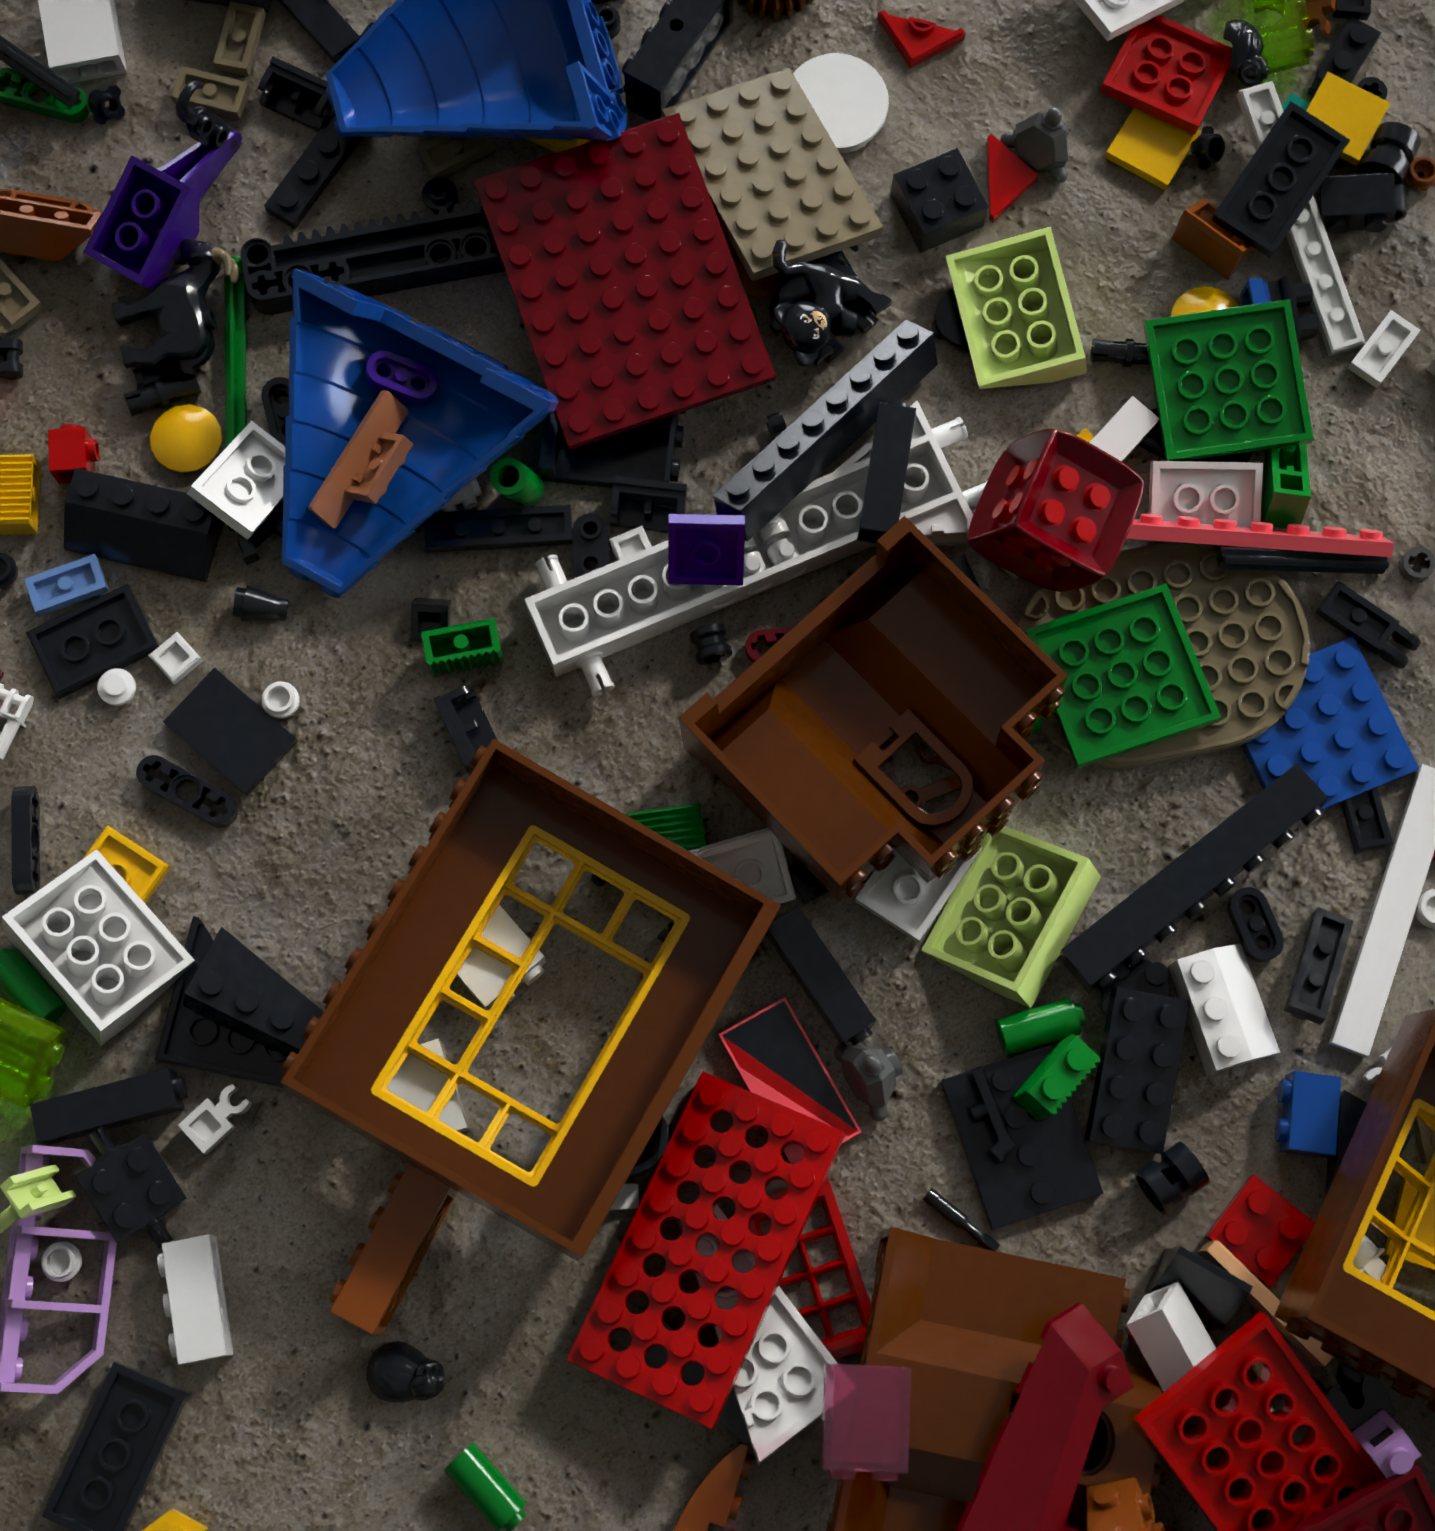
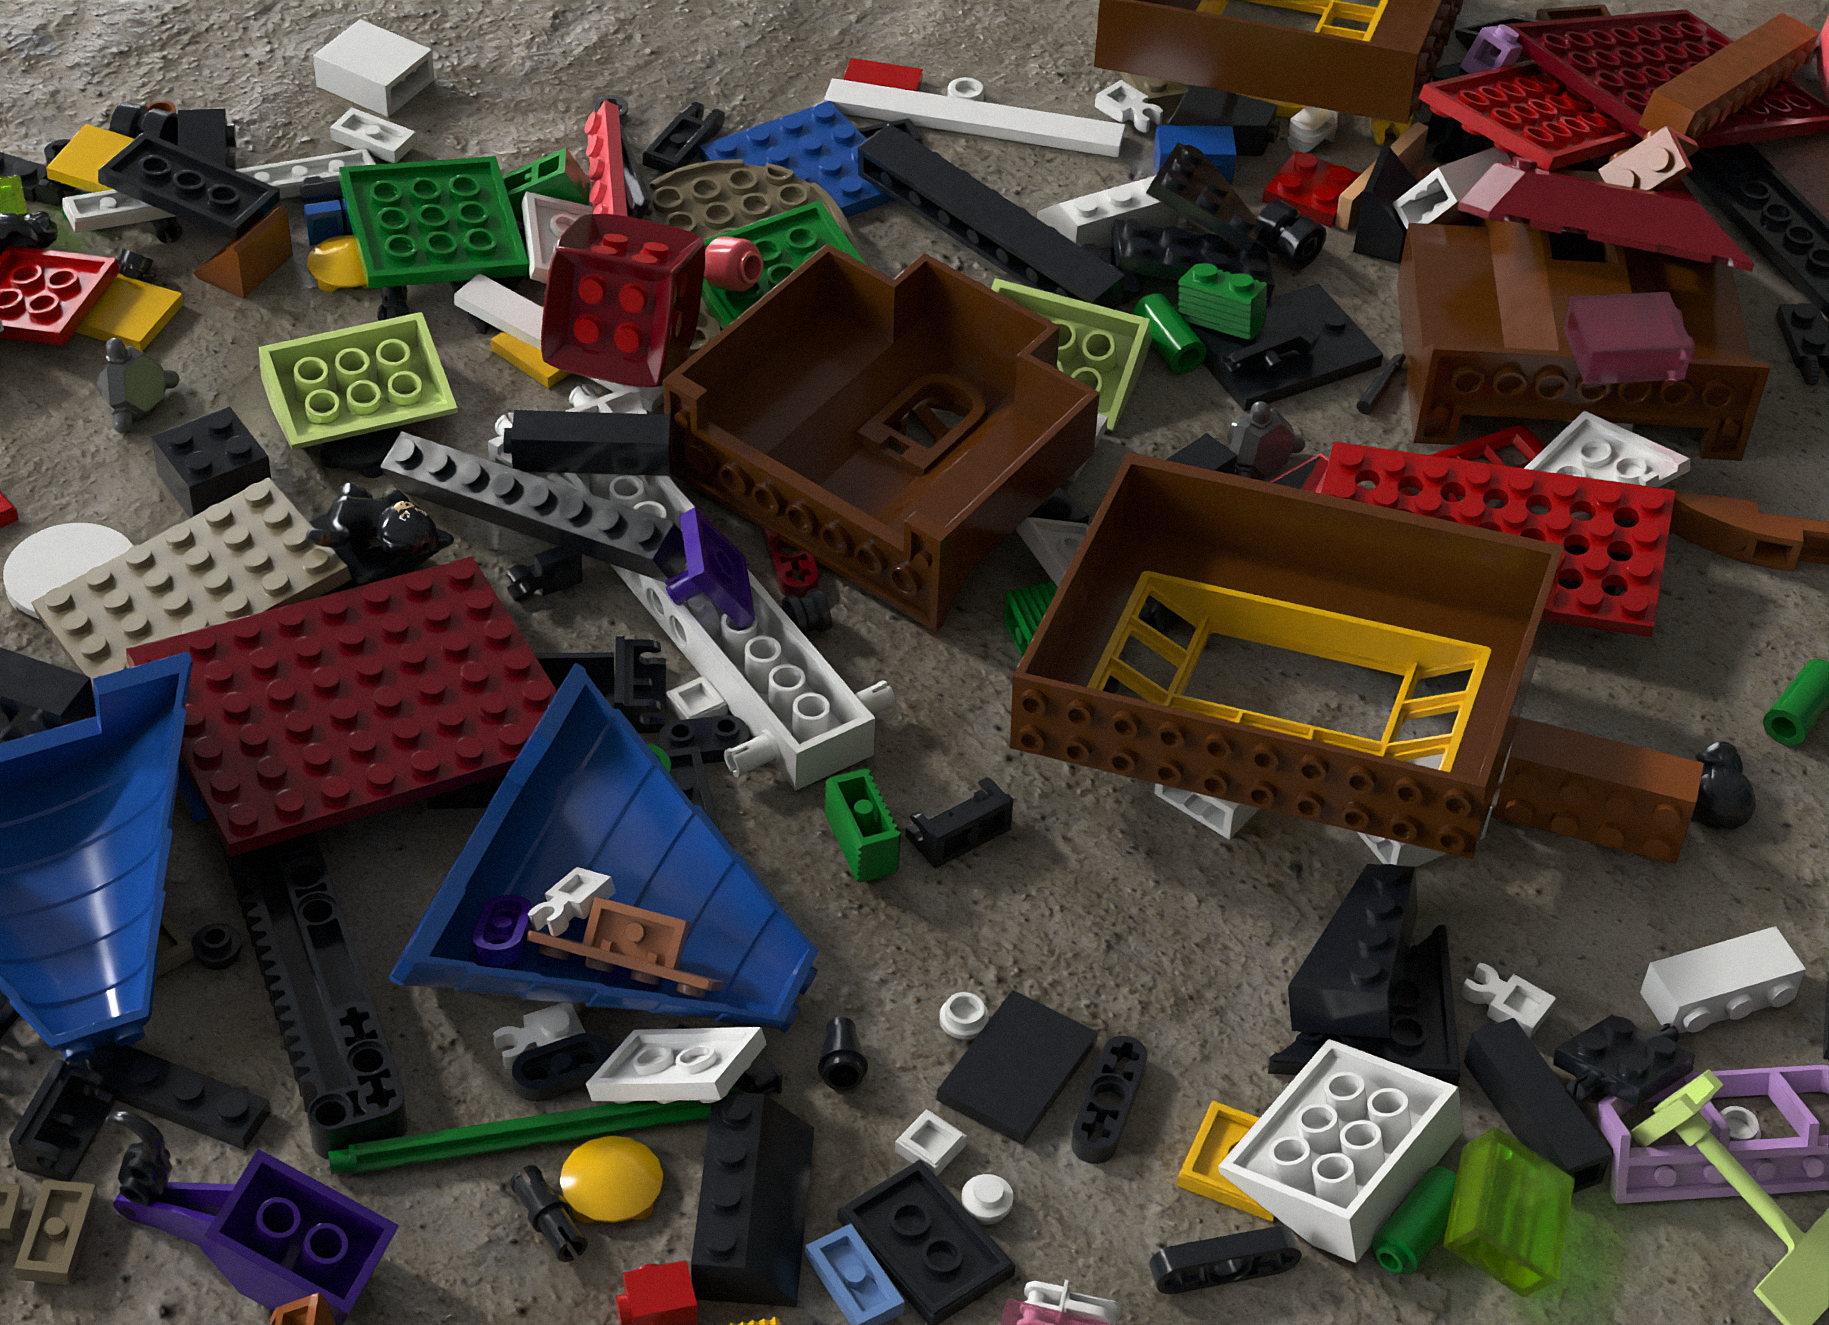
camera: 100 degrees left, 30 degrees down
(179, 314) = (433, 1196): black animal -> none
(421, 427) = (569, 899): none -> white plate
(429, 615) = (820, 882): black slope -> none
(1006, 177) = (163, 416): red tile -> none
(1121, 621) = (732, 264): none -> coral head
(1213, 1092) = (1202, 194): none -> black plate
(1257, 924) = (1028, 192): black plate -> none
(1318, 966) = (1050, 153): black hinge -> none

